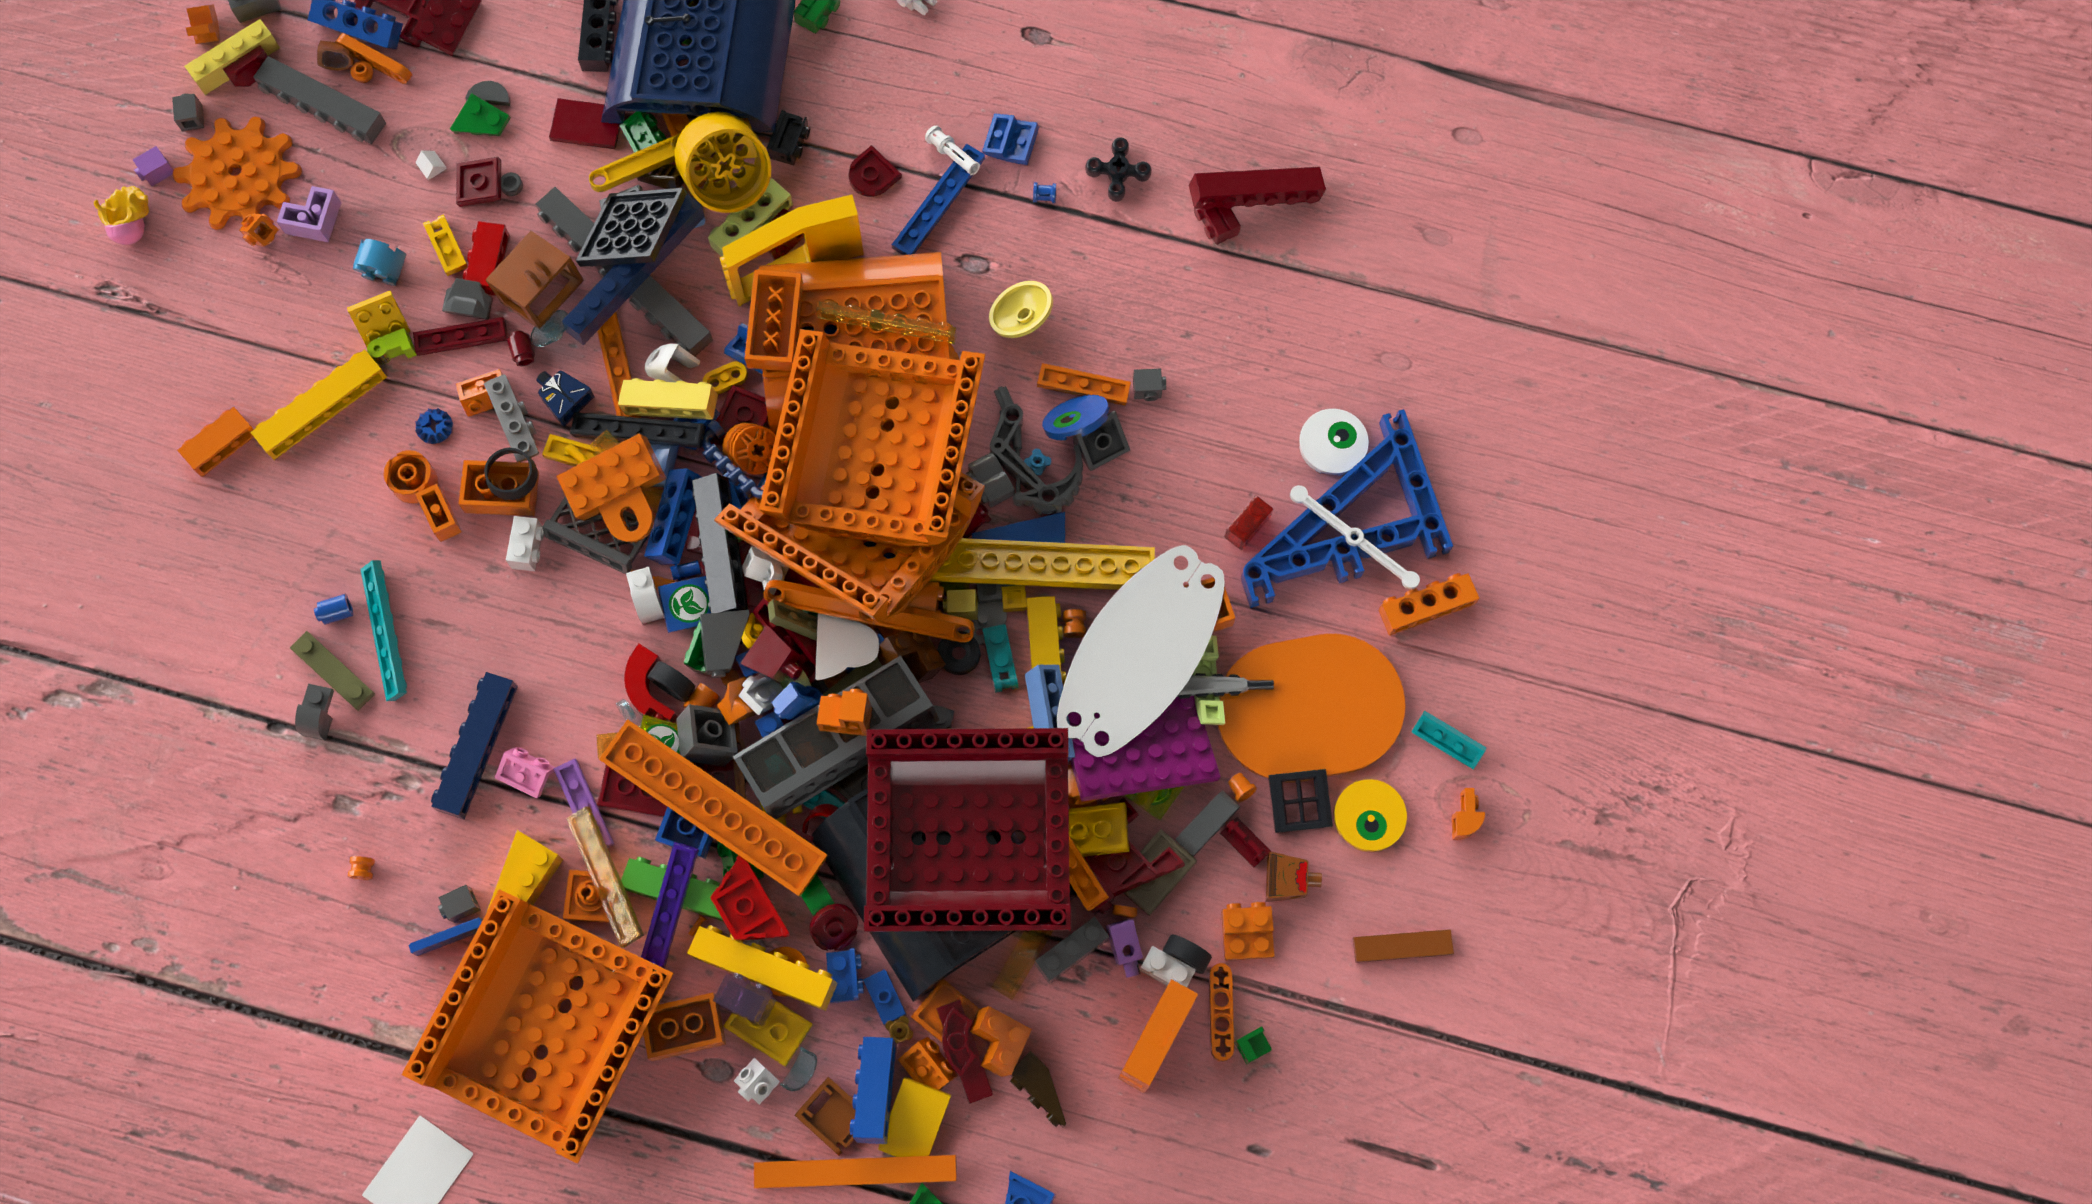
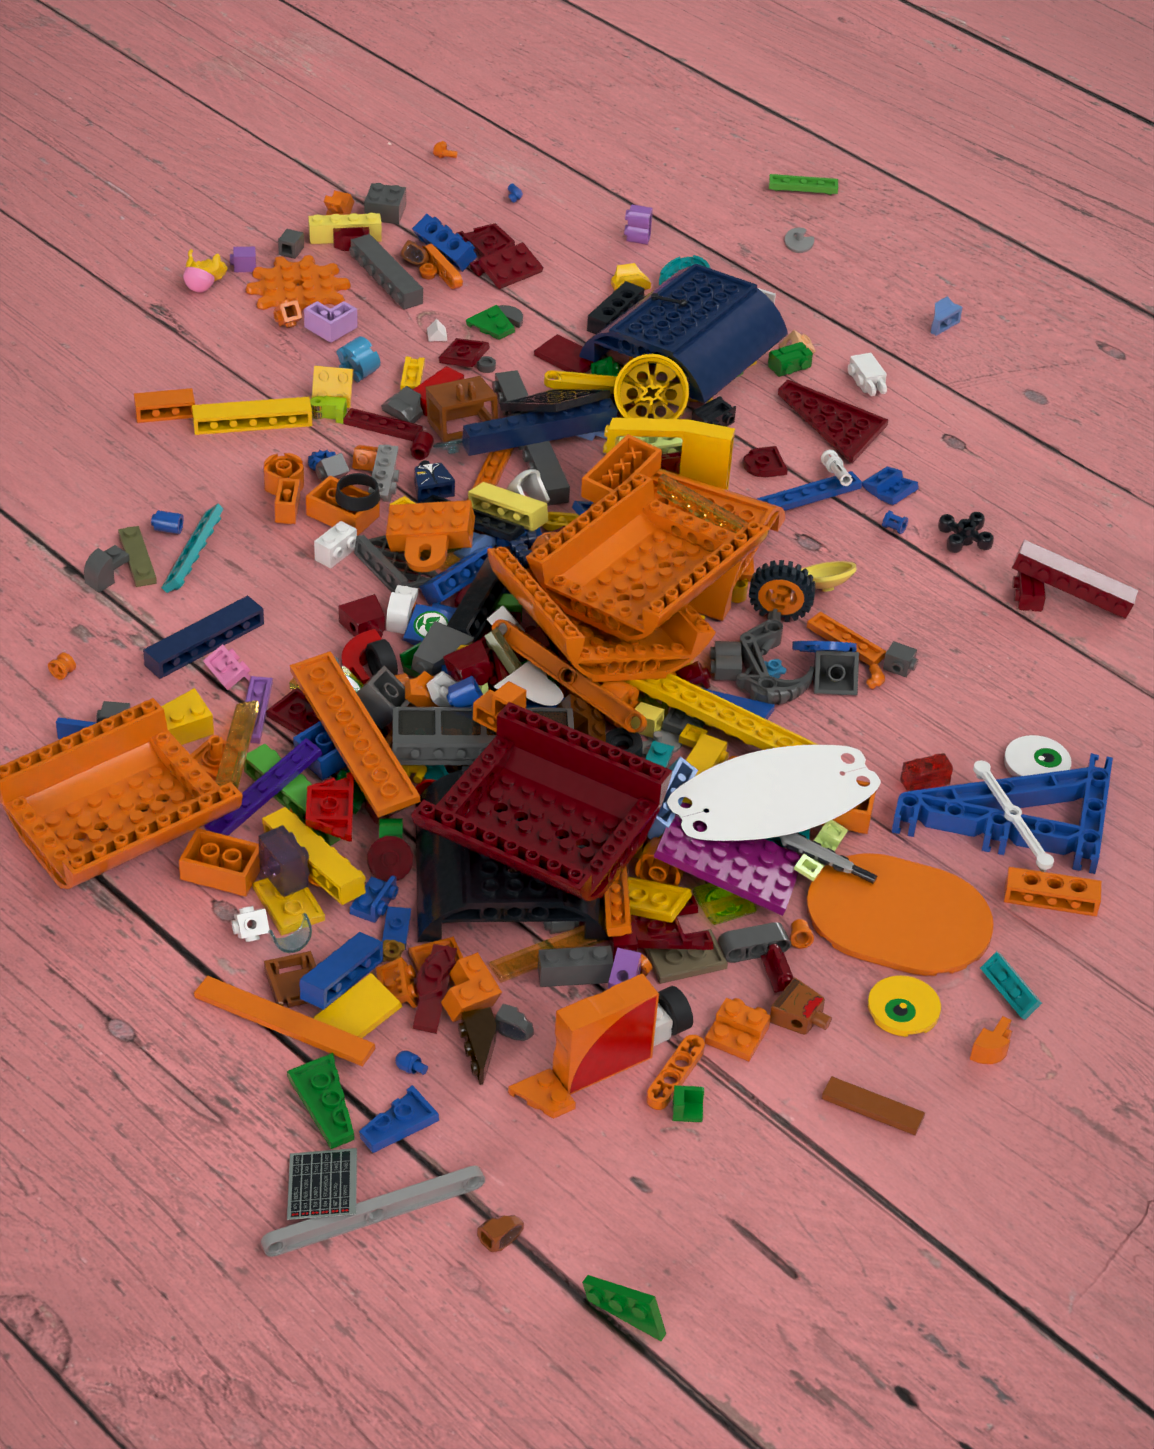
camera: 30 degrees right, 30 degrees down
(453, 438) = (332, 466): none -> brick
(615, 627) = (362, 615): none -> dark red torso
(913, 73) = (839, 423): none -> dark red wing
(992, 1146) = (410, 1063): none -> blue cylinder
(1006, 367) = (782, 581): none -> wheel
(1056, 1046) = (513, 1023): none -> dark grey rock
(1125, 1106) = (544, 1093): none -> orange wing
(1138, 416) = (877, 677): none -> orange arm
(1322, 800) = (827, 957): black piece -> none

